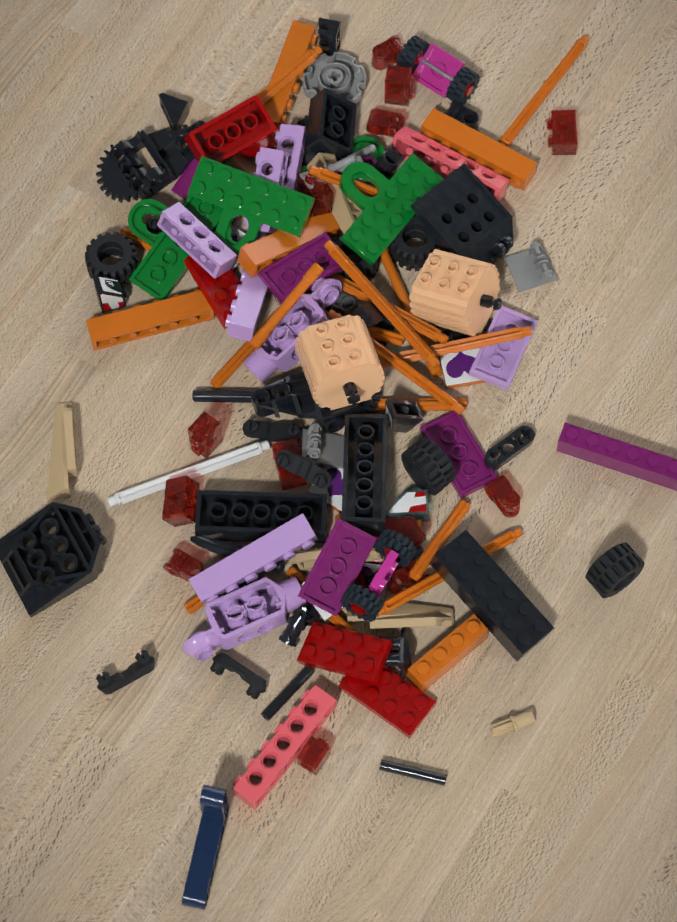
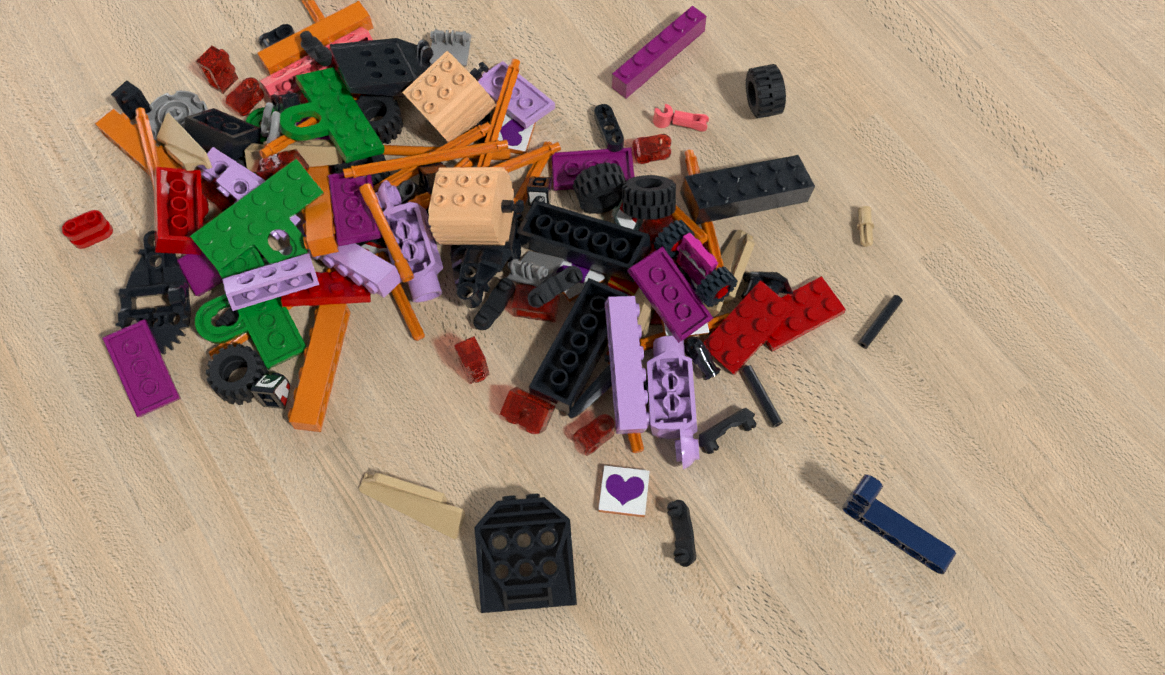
camera: 65 degrees left, 0 degrees up
(84, 185) = (141, 368): none -> magenta tile
(145, 613) = (624, 491): none -> tile
(174, 109) = (113, 260): black slope -> none
(191, 73) = (87, 229): none -> red brick
(191, 471) = (498, 397): white piece -> none
(234, 396) = (439, 327): black axle -> none
(255, 793) = (817, 405): coral brick -> none
(294, 102) = (181, 145): none -> tan wedge
(314, 755) = (835, 395): clear red brick -> none
(388, 51) = (179, 69): clear red piece -> none
(429, 508) = (649, 197): none -> black tyre
(438, 70) = (223, 34): plate -> none
(447, 653) = (782, 246): orange brick -> none
(453, 154) = (315, 49): none -> black piece
(553, 508) = (680, 118): none -> coral piece

